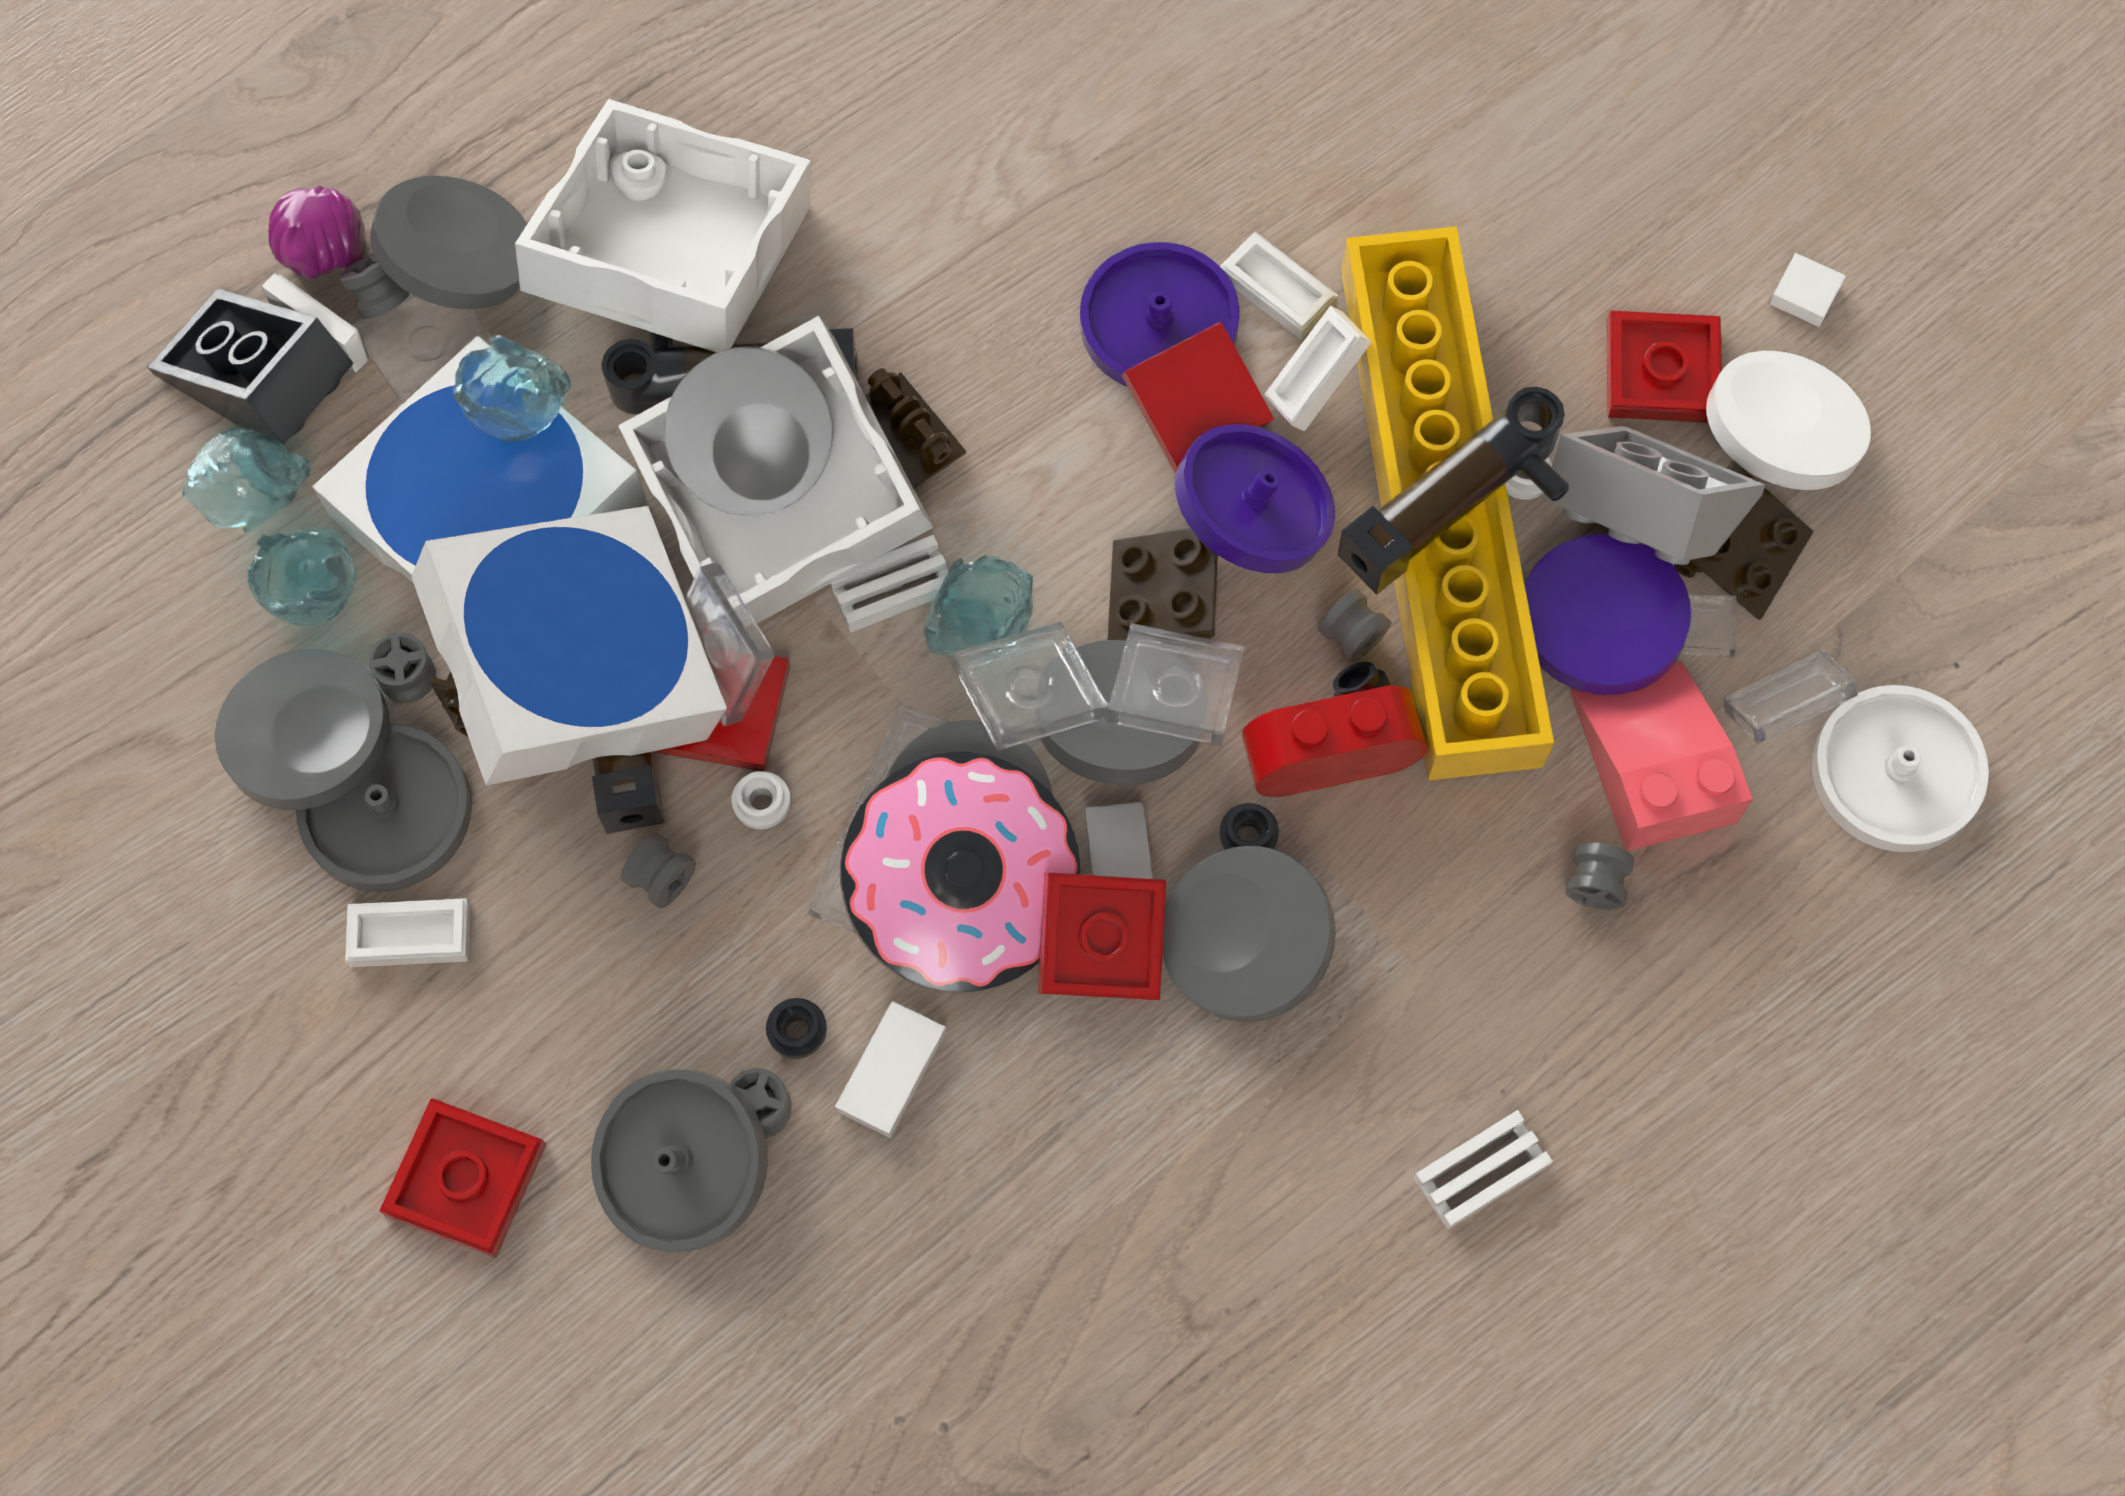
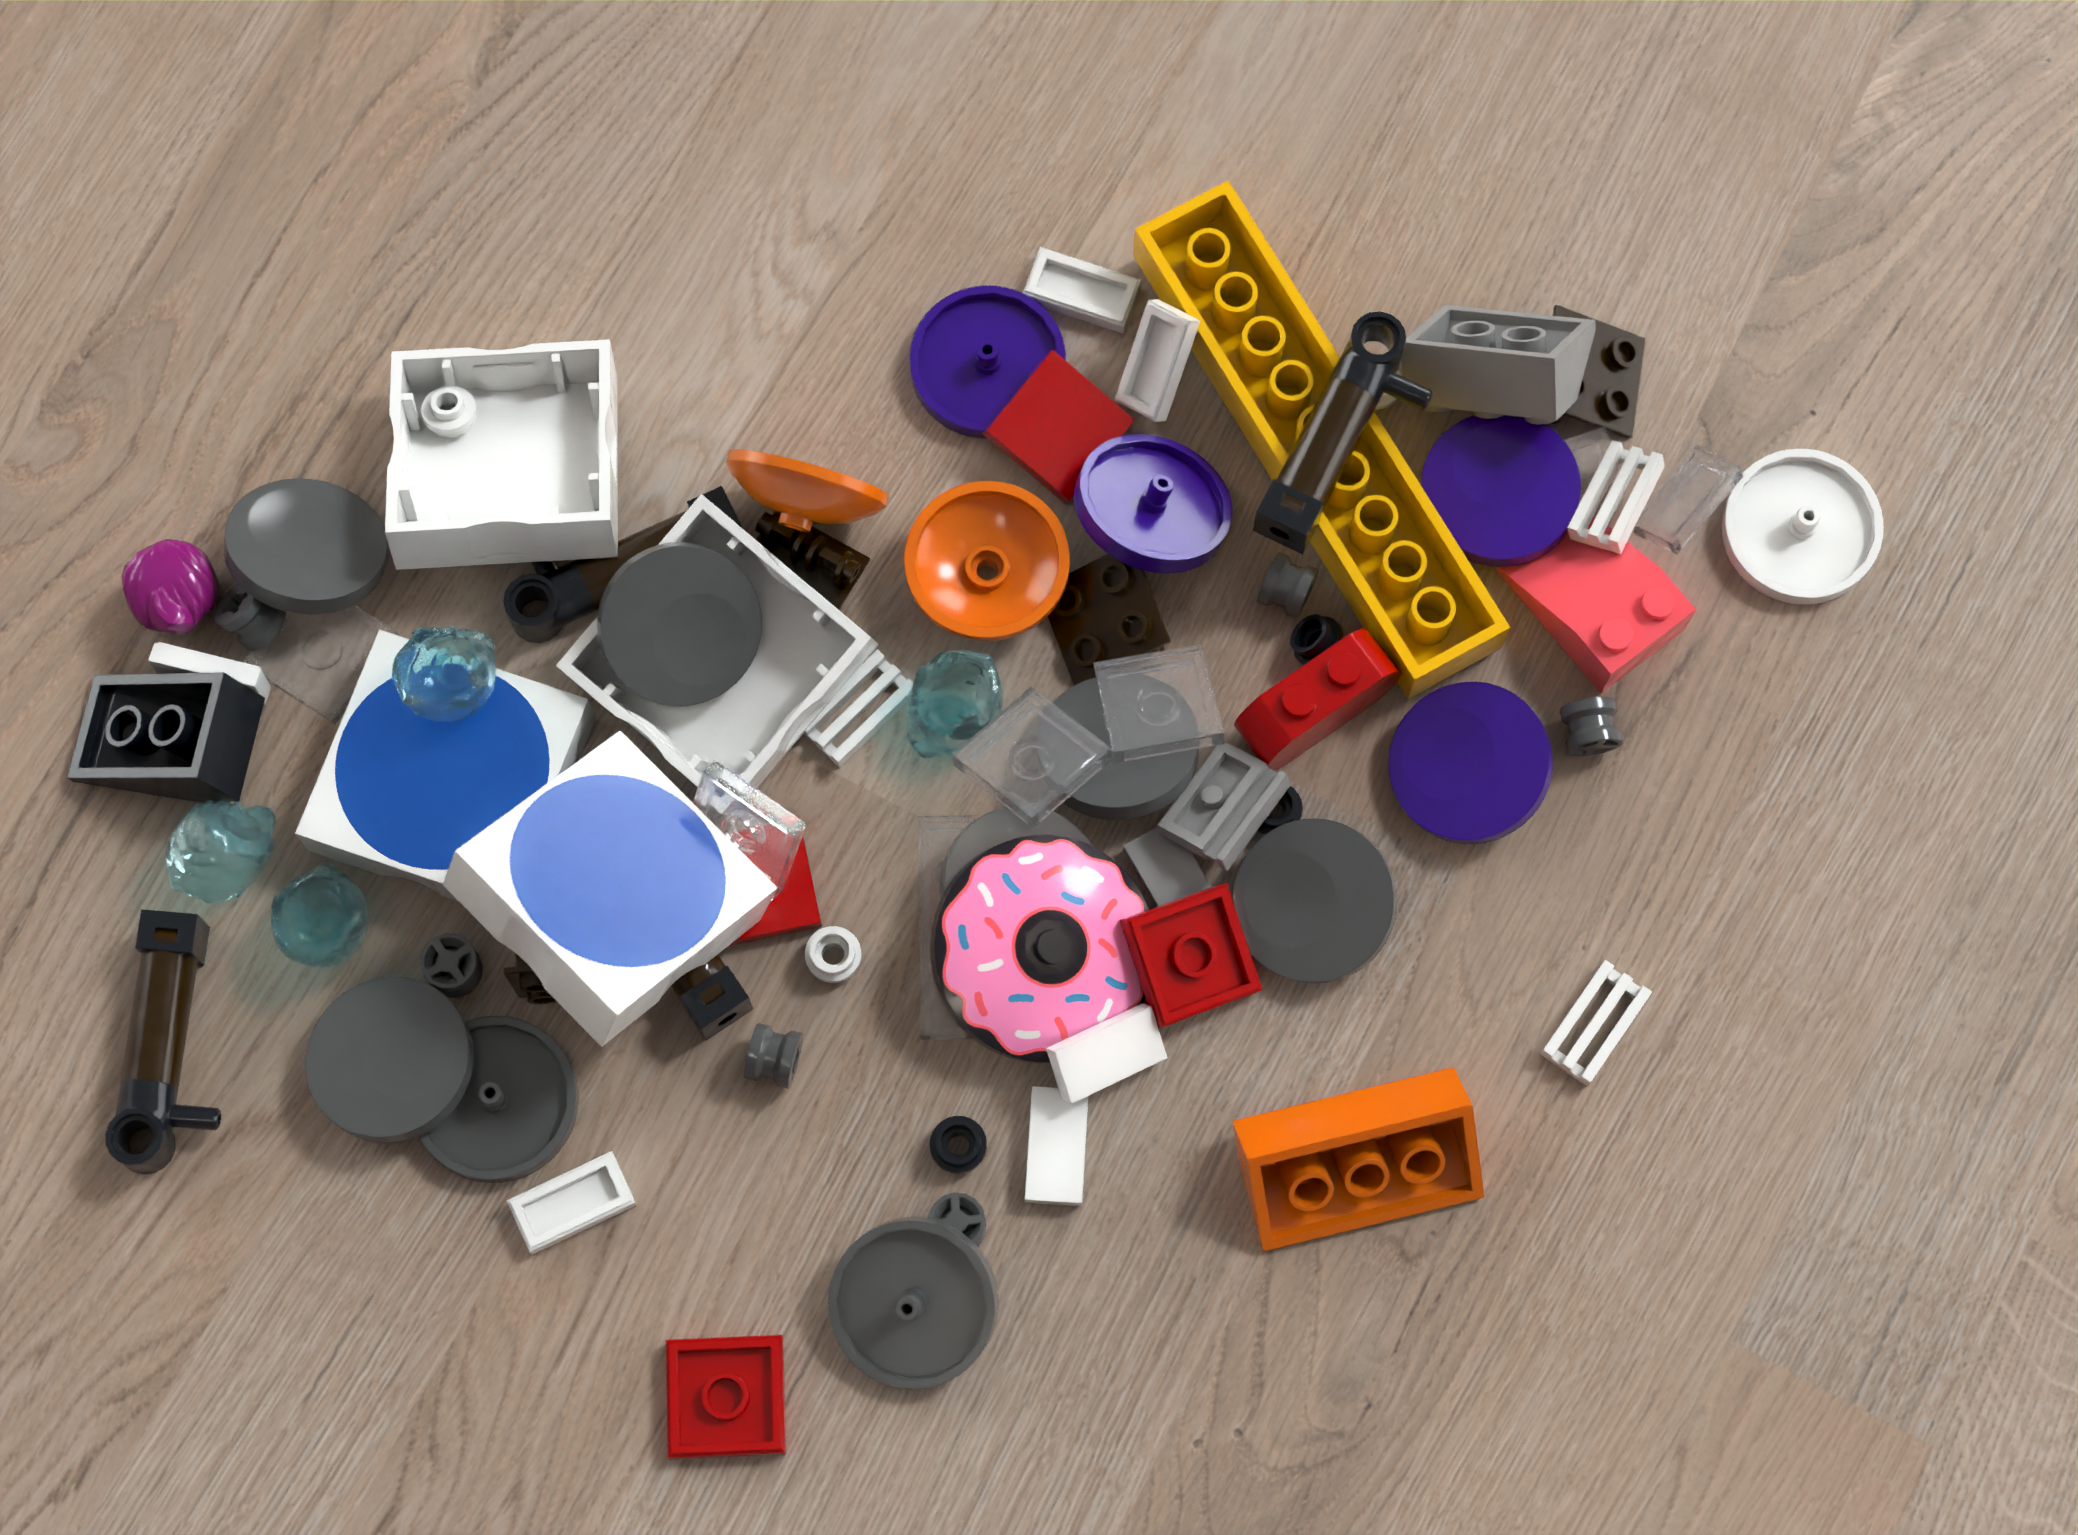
camera: 25 degrees left, 5 degrees up
(156, 554) = (170, 952): none -> piece
(924, 356) = (804, 490): none -> orange dish
(976, 997) = (1106, 1053): none -> white tile
(1064, 461) = (980, 528): none -> orange dish
(1182, 1204) = (1359, 1158): none -> orange slope
(1197, 805) = (1224, 805): none -> light grey plate
(1462, 863) = (1470, 762): none -> dark purple piece
(1661, 365) = (1456, 234): red tile -> none
(1710, 656) = (1614, 456): none -> white tile
(1788, 420) = (1586, 246): white piece -> none
(1807, 289) = (1552, 113): white tile -> none

